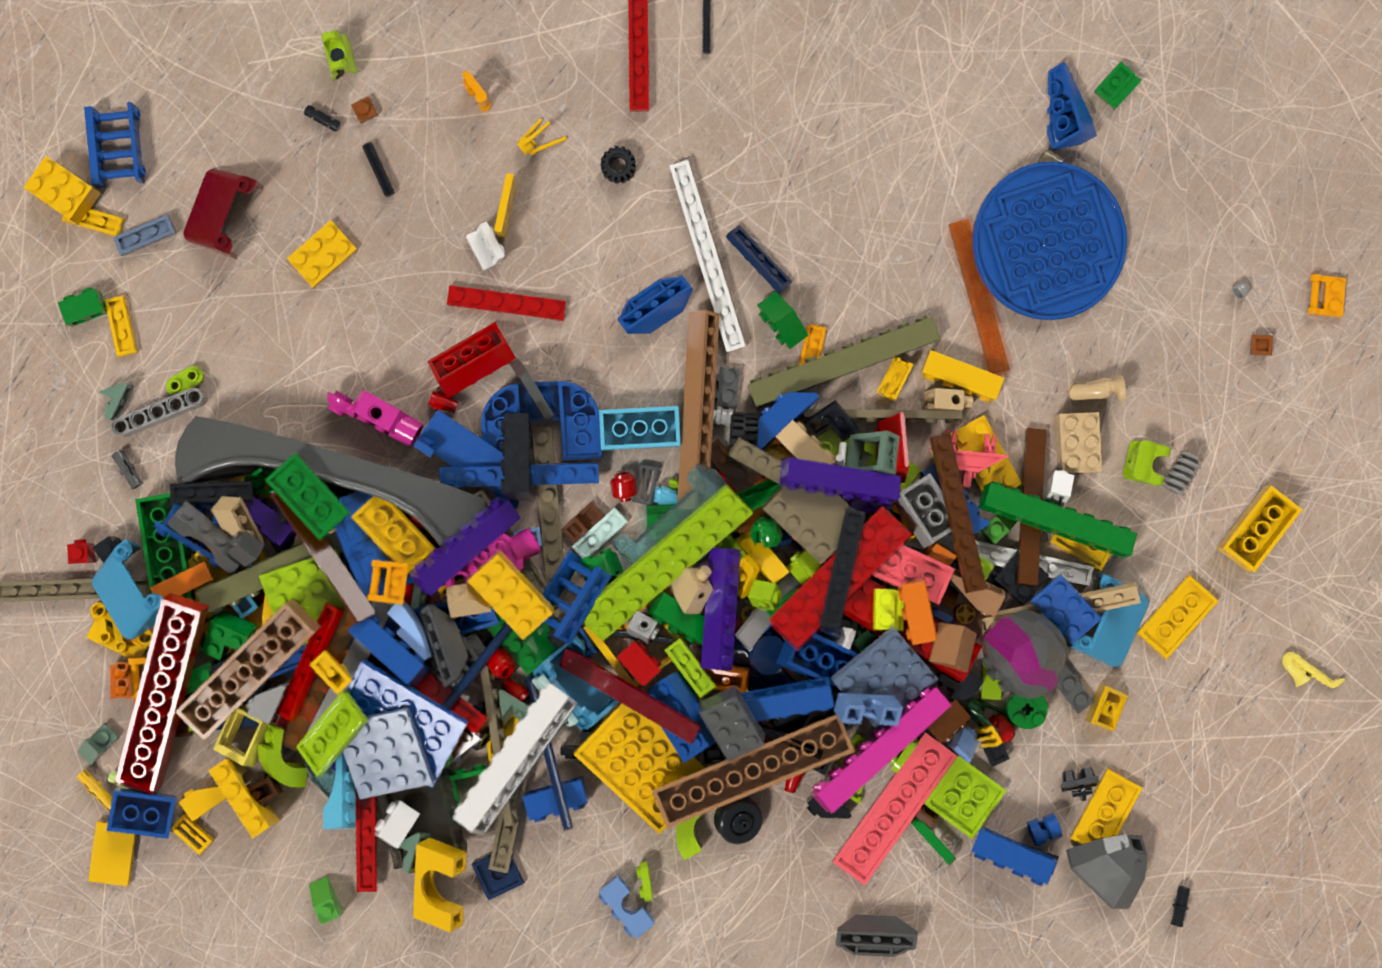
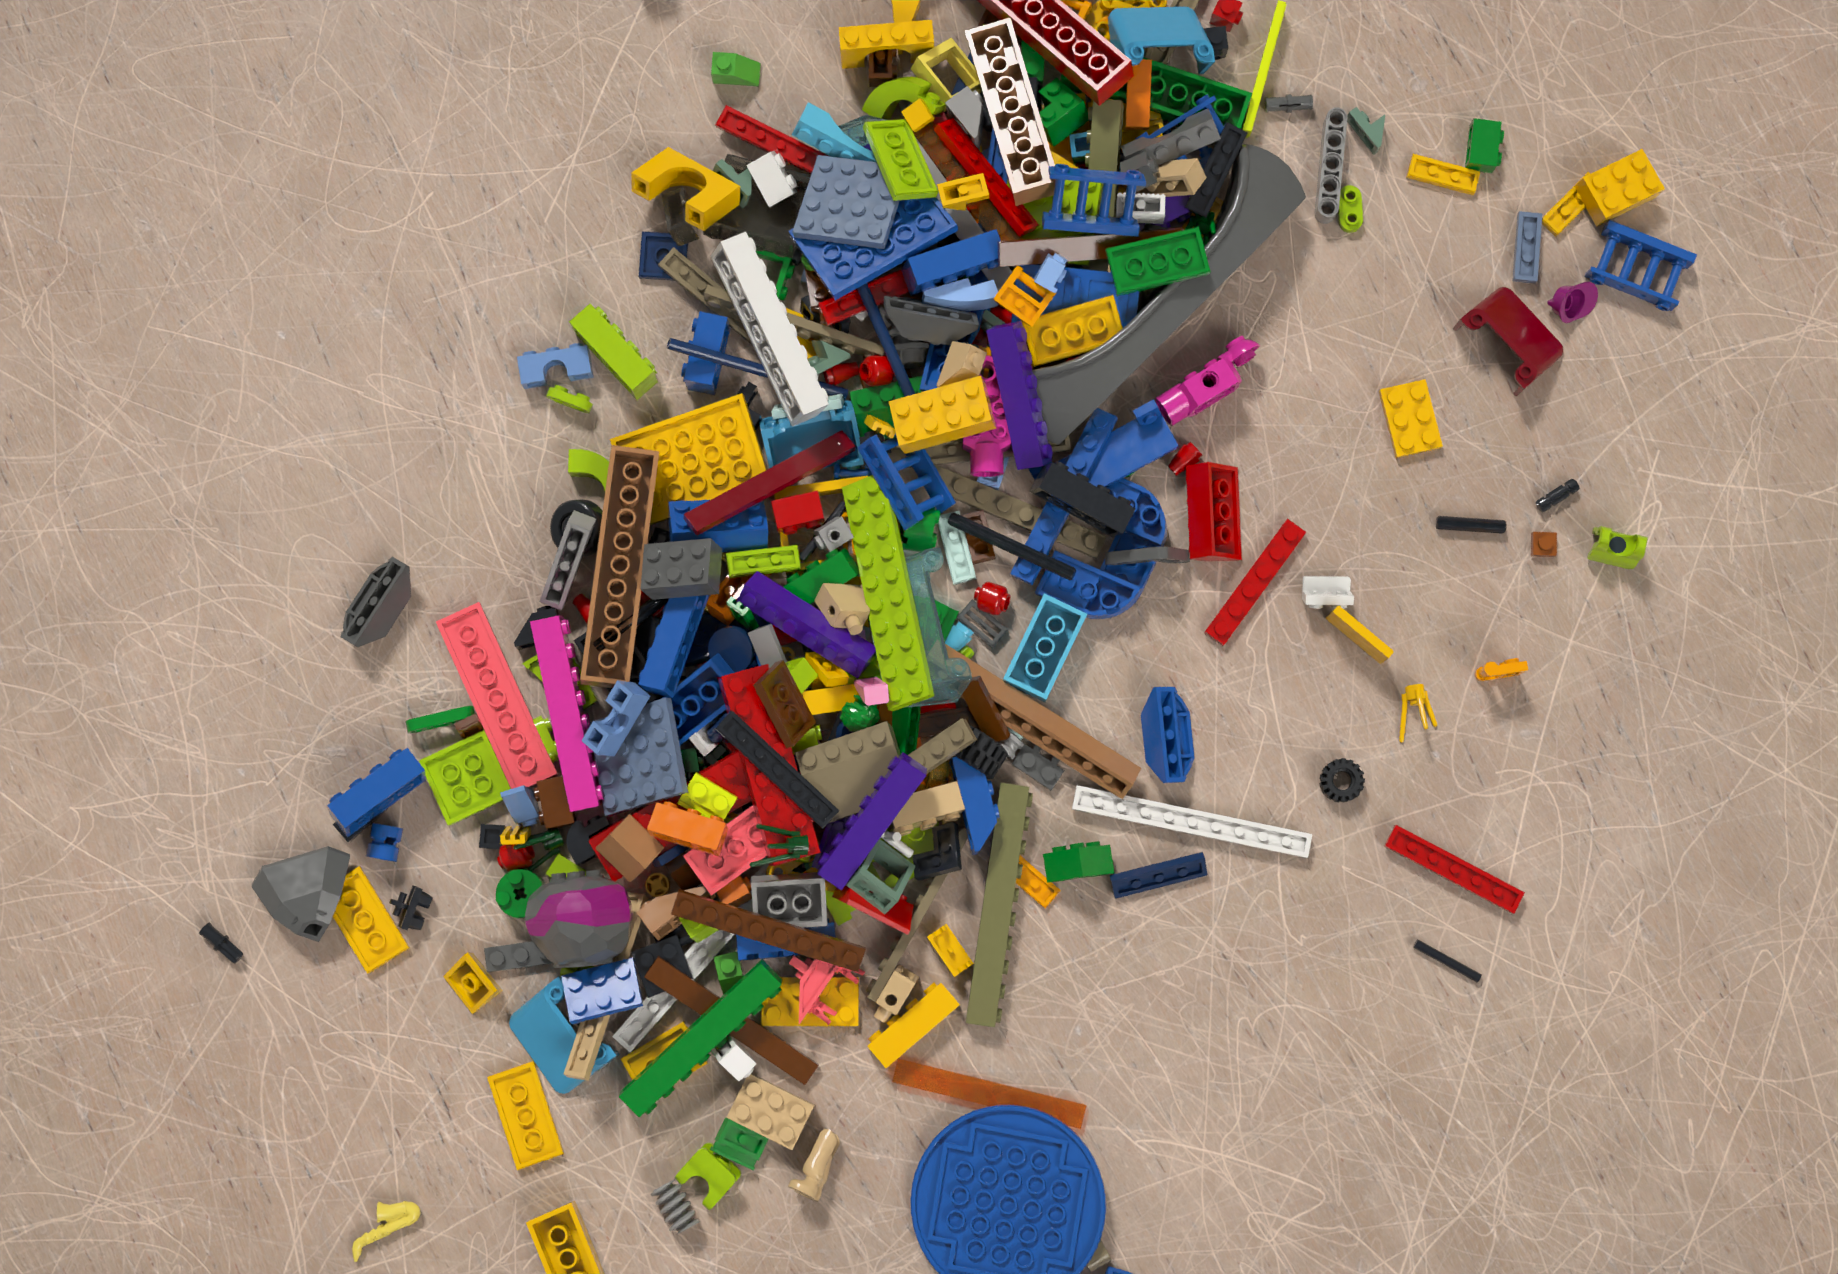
camera: 120 degrees right, 5 degrees down
(108, 502) = (1264, 67): none -> neon yellow tile
(168, 179) = (1574, 301): none -> magenta piece
(272, 533) = (1146, 207): none -> white brick
(289, 739) = (918, 115): none -> yellow tile
(304, 560) = (1102, 222): none -> blue fence
(359, 571) = (1051, 272): none -> light blue brick
(457, 885) = (674, 210): none -> clear smoke piece
(542, 637) = (879, 425): none -> yellow tile
(578, 490) = (1012, 546): none -> black axle
(594, 863) = (613, 351): none -> lime brick
(711, 444) = (985, 710): none -> reddish brown tile
(738, 661) = (739, 612): none -> green tile
(744, 533) = (872, 690): none -> bright pink slope
(768, 812) = (567, 560): none -> light grey brick
(792, 590) = (784, 703): none -> reddish brown plate
(891, 525) = (795, 846): none -> dark green plant
(1115, 453) = (739, 1144): none -> green plate

